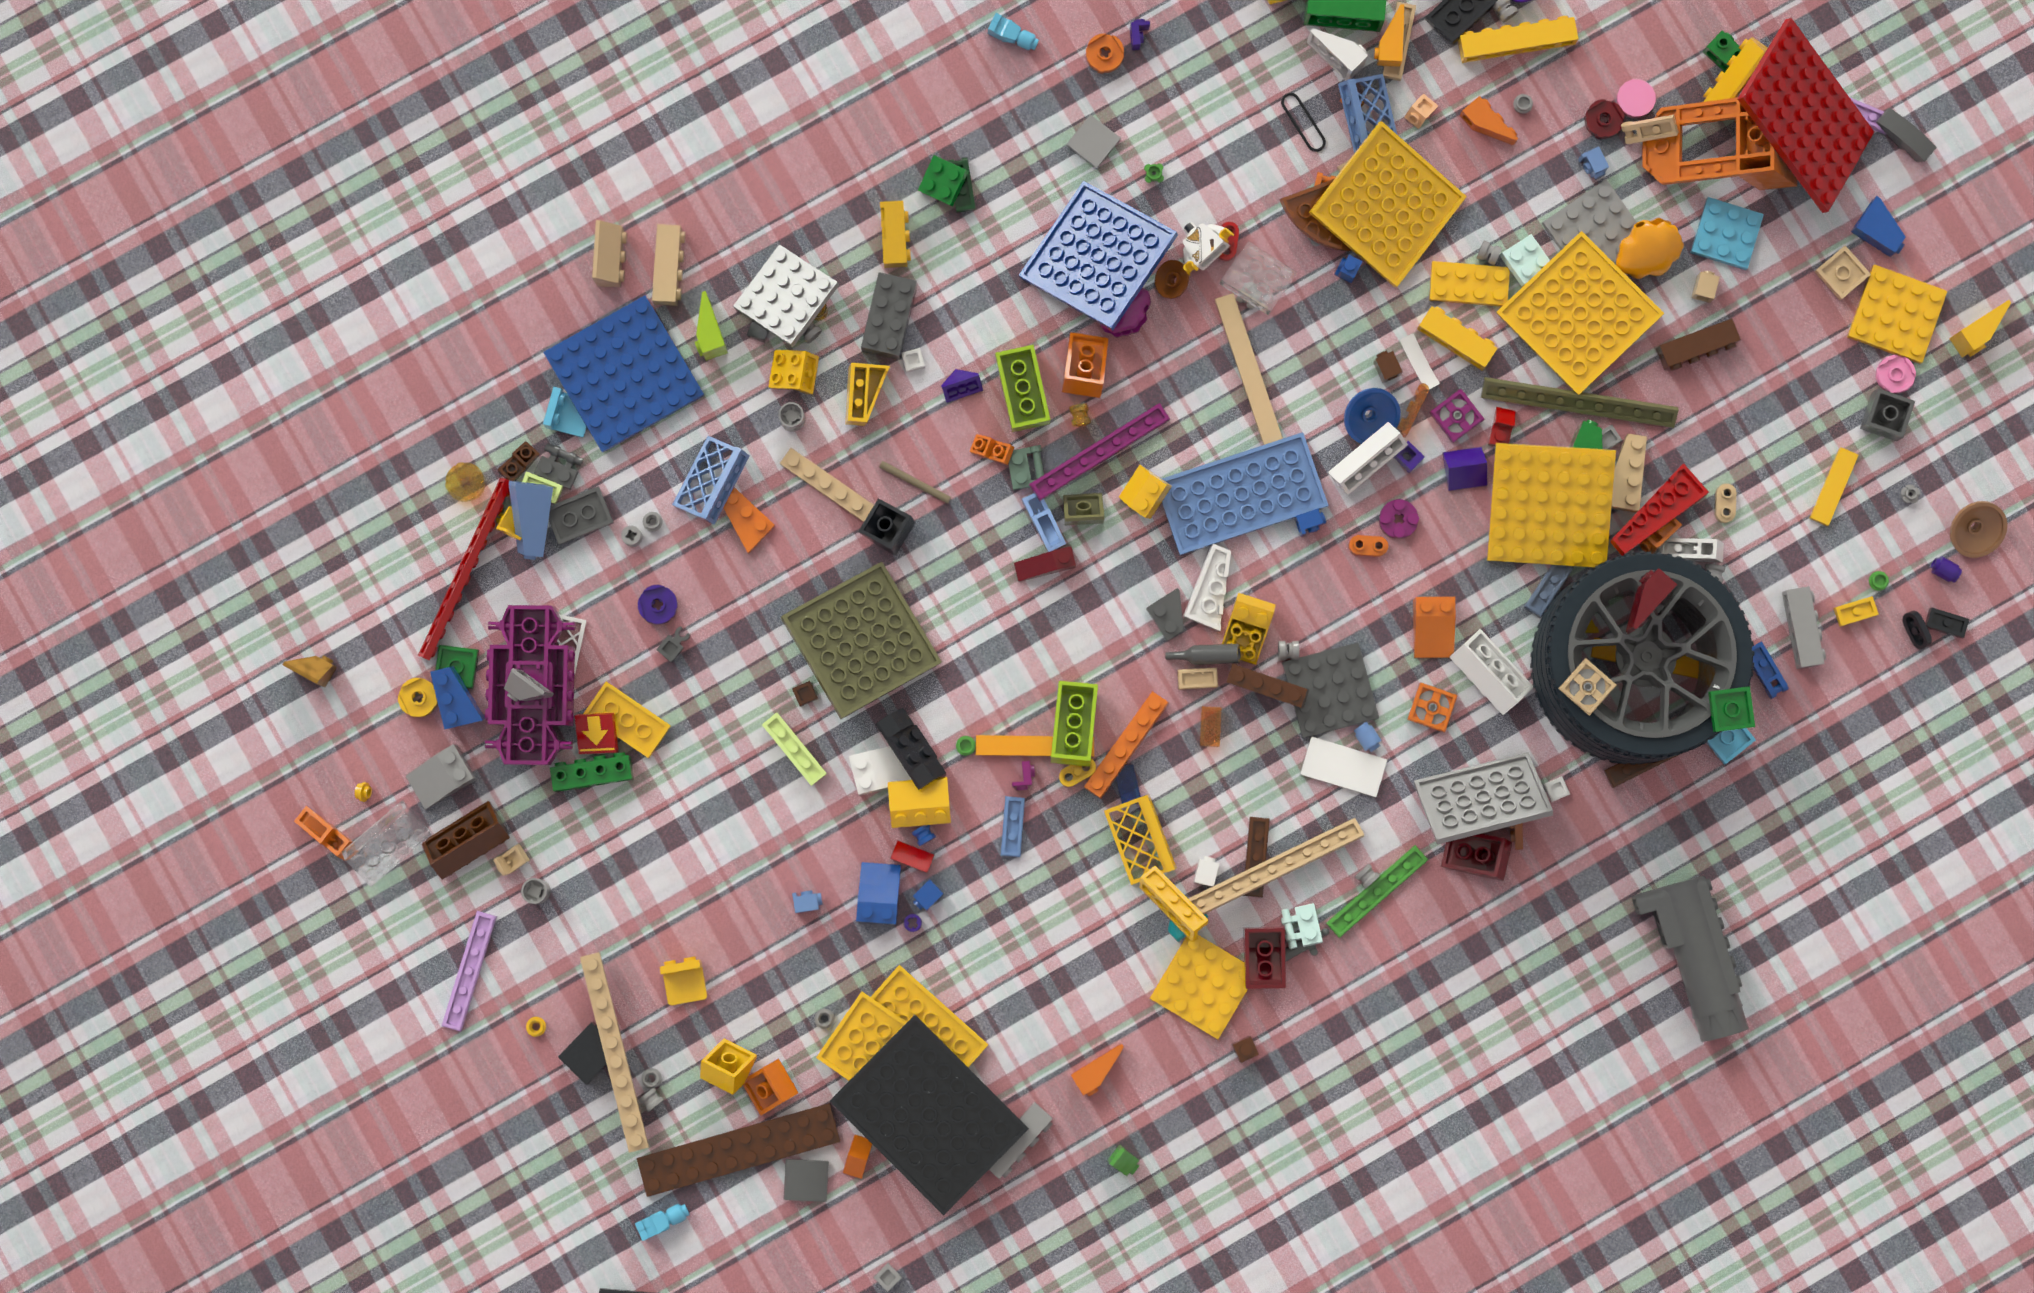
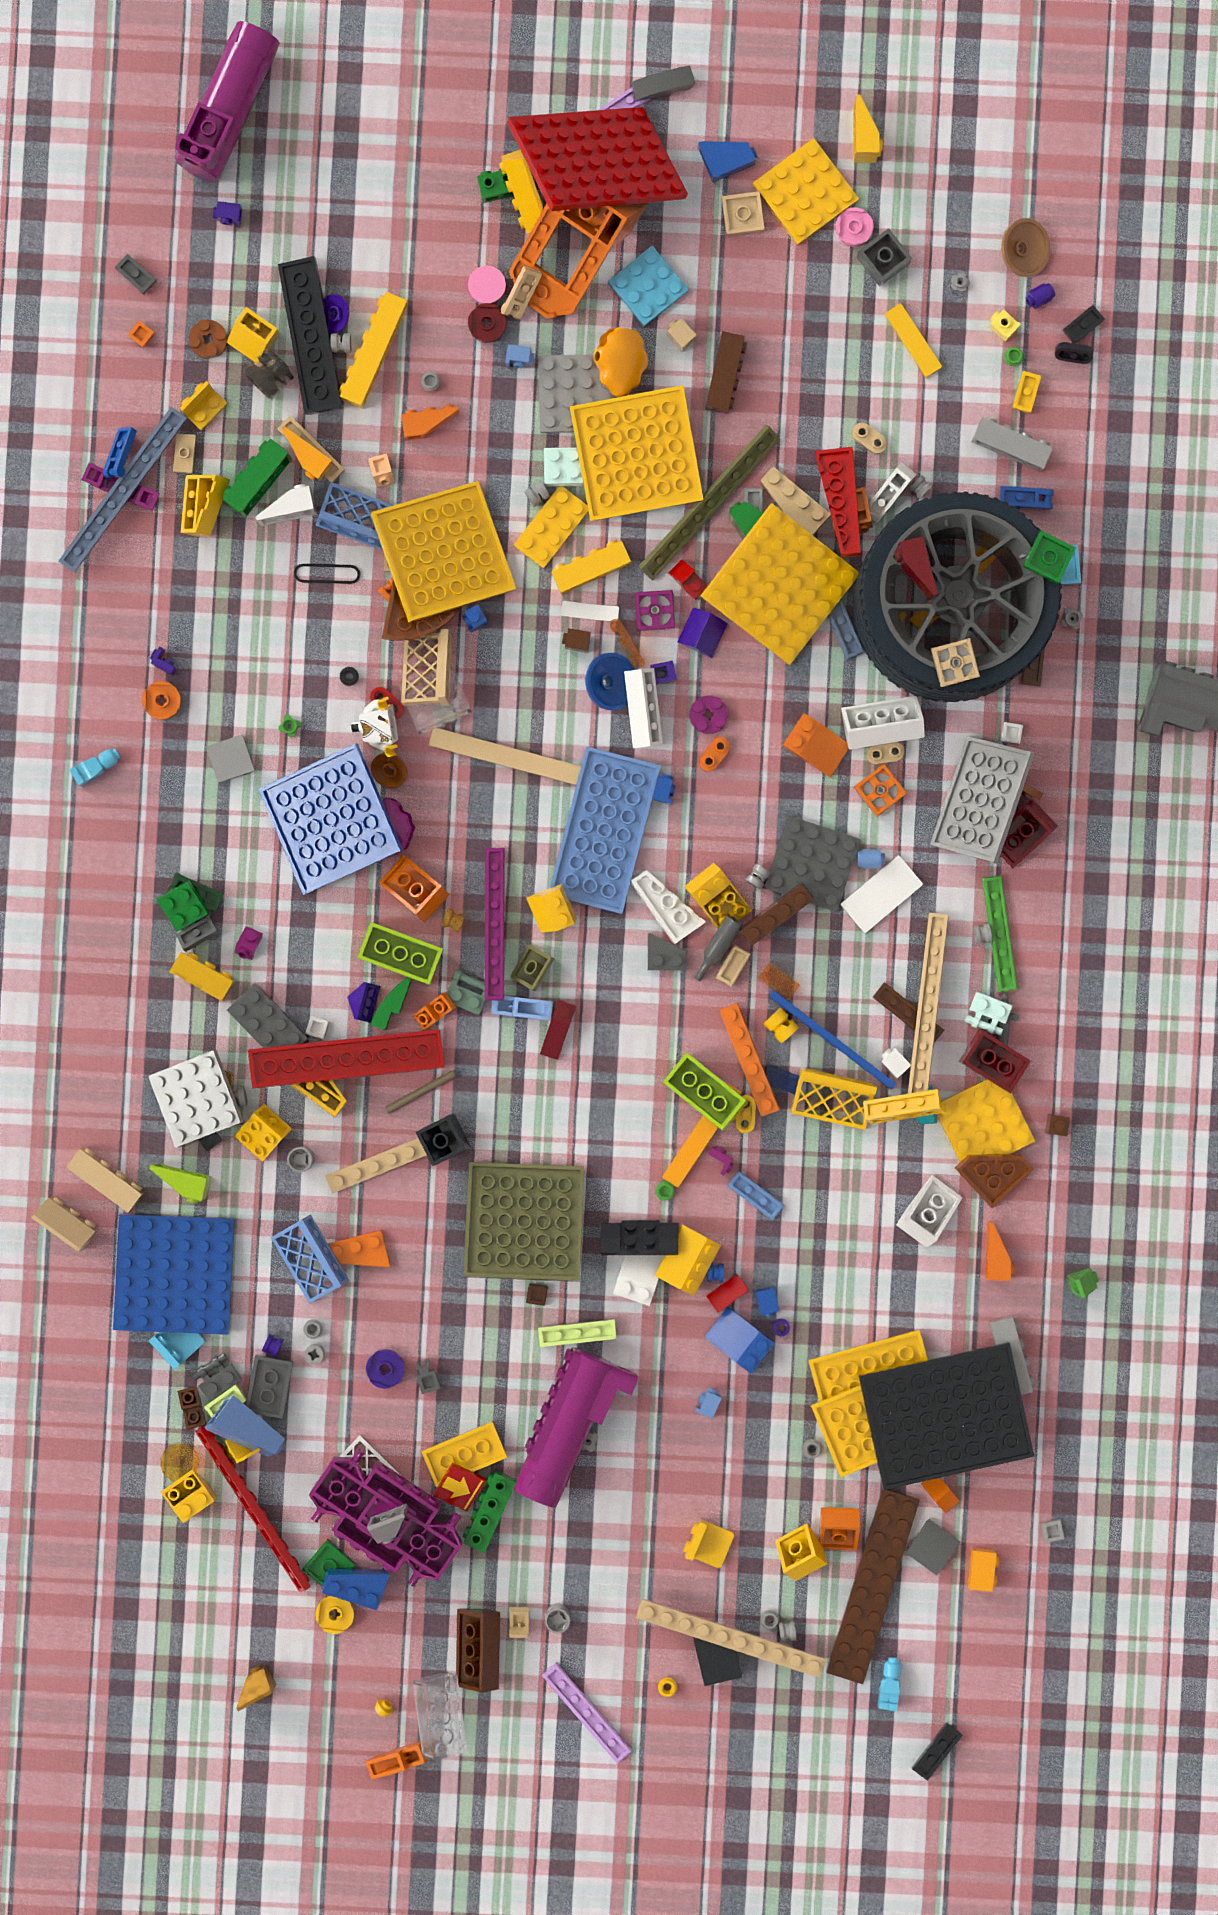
camera: 55 degrees left, 5 degrees up
(441, 776) = (412, 1635): light grey slope -> none
(442, 506) = (189, 1495): none -> yellow slope
(616, 495) = (272, 1345): none -> dark purple wheel
(710, 822) = (591, 1444): none -> light grey plate
(734, 786) = (576, 1401): none -> magenta piece
(814, 1236) = (982, 1569): none -> light orange brick
(902, 398) = (345, 1059): none -> red plate
(927, 208) = (197, 933): none -> dark grey plate
(947, 256) = (248, 943): none -> magenta bracket
(974, 408) = (392, 1003): none -> green slope
(1096, 986) = (929, 1211): none -> white slope
(1165, 1021) = (994, 1174): none -> dark orange plate
(1174, 752) = (781, 1025): none -> yellow wheel
(1190, 805) = (832, 1040): none -> blue tile
(1232, 190) = (344, 672): none -> black plate
(1285, 269) = (442, 673): none -> tan fence
(1465, 692) = (885, 753): none -> tan plate
(1692, 771) = (1071, 613): none -> light grey plate
(1894, 558) = (1002, 331): none -> light yellow brick

